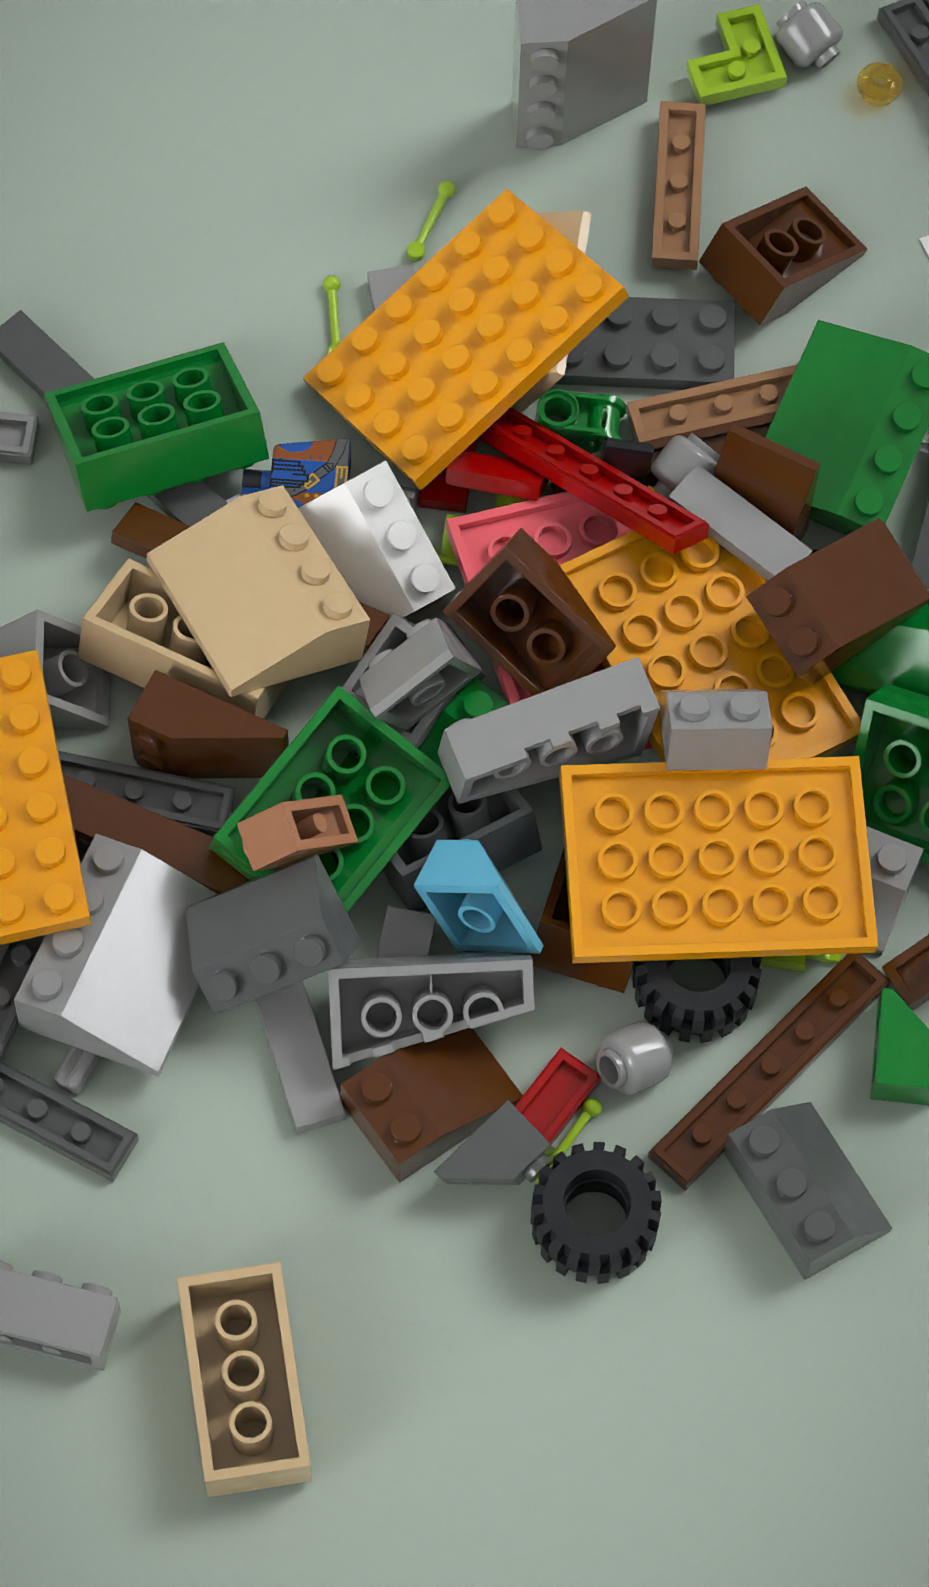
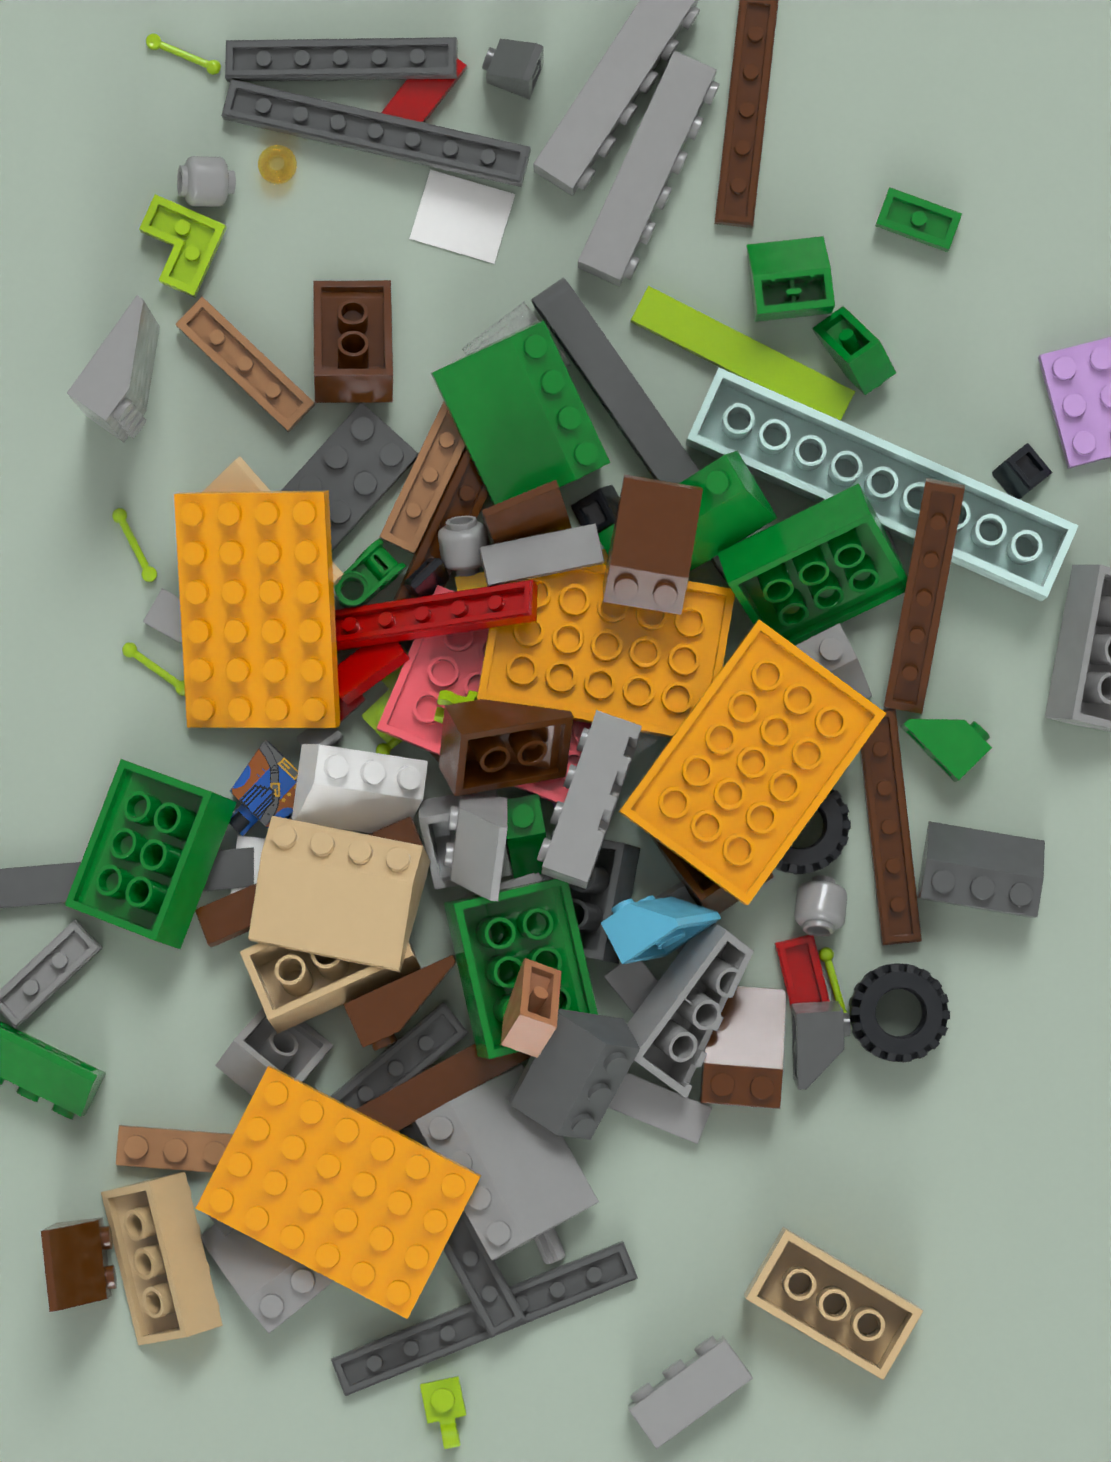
camera: 50 degrees left, 20 degrees up
(715, 729) = (669, 692): light grey slope -> none

